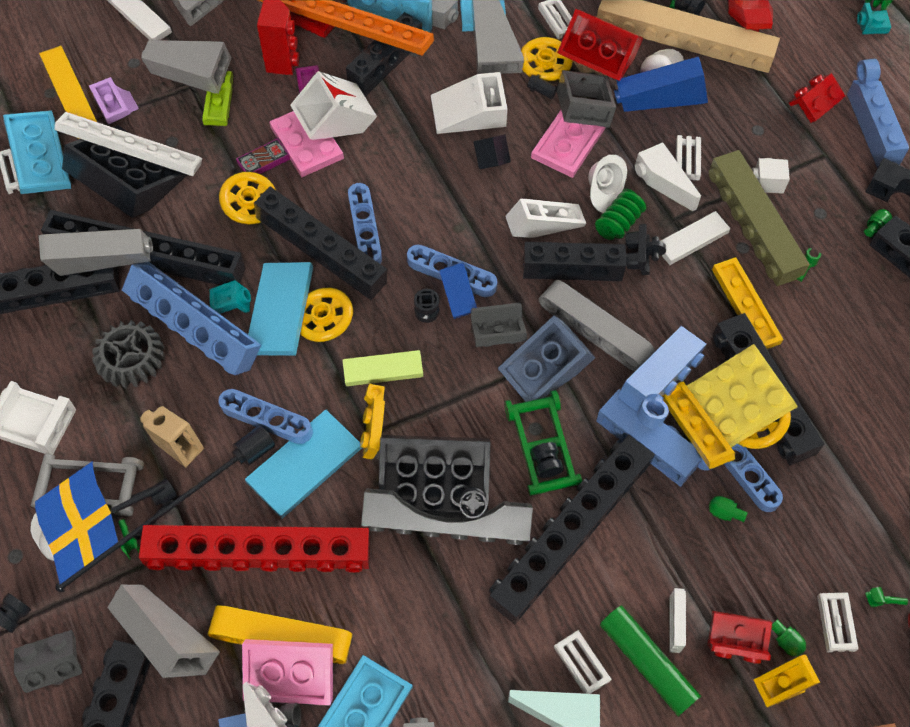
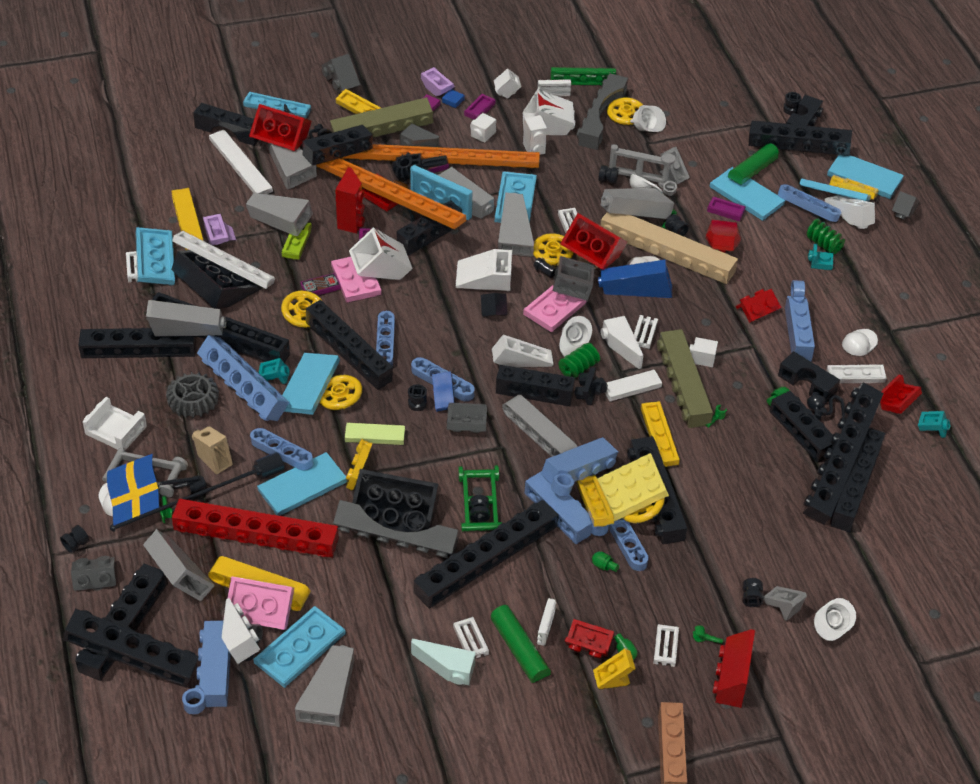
camera: 10 degrees right, 15 degrees down
(546, 360) = (497, 445): sand blue slope -> none

